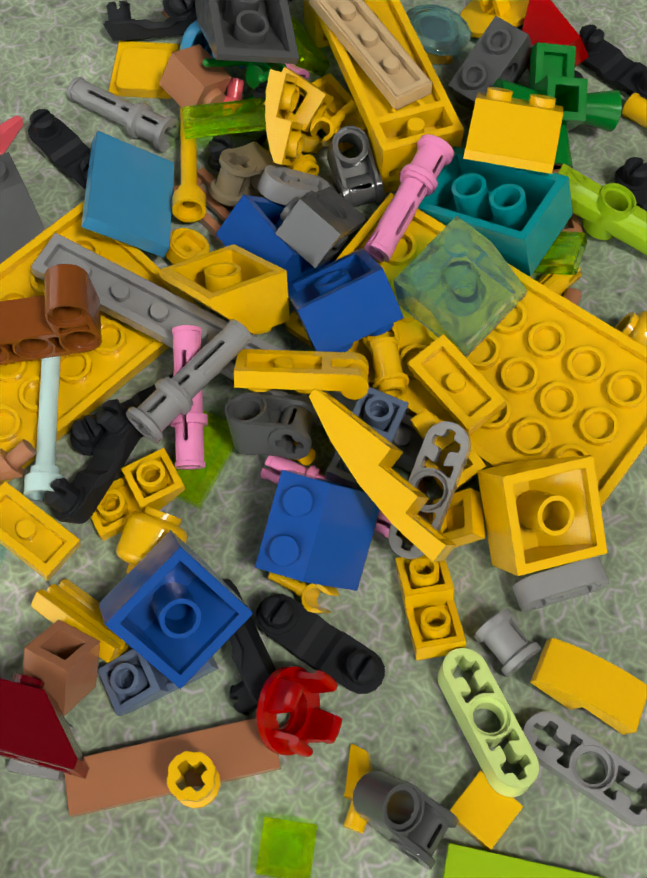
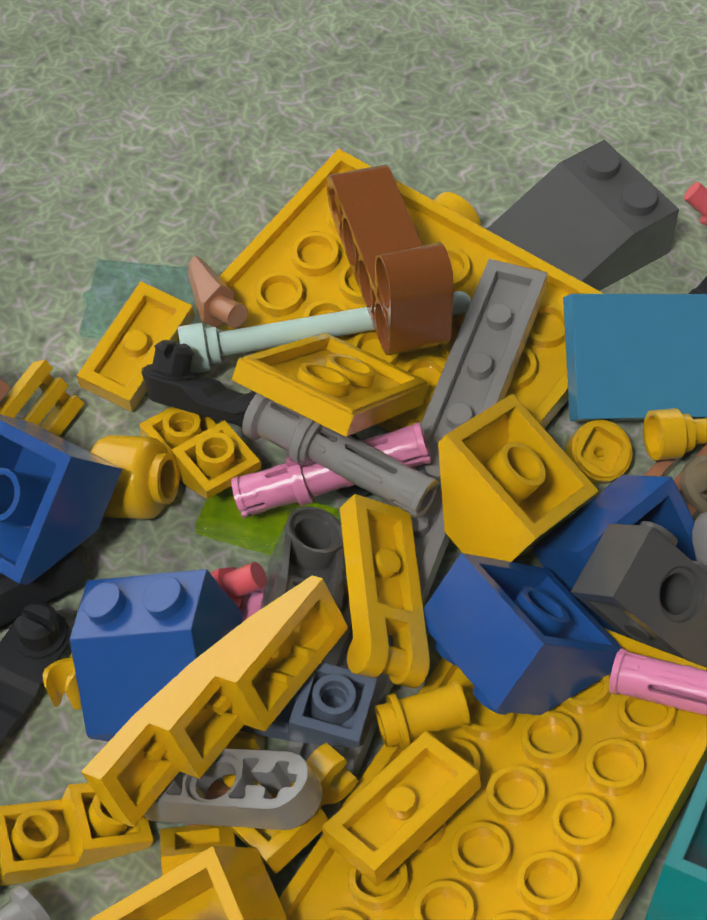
camera: 80 degrees right, 10 degrees down
(128, 377) = (331, 383): none -> yellow tile
(264, 483) = (241, 580): none -> coral bar
(459, 286) = (566, 784): clear light blue slope -> none

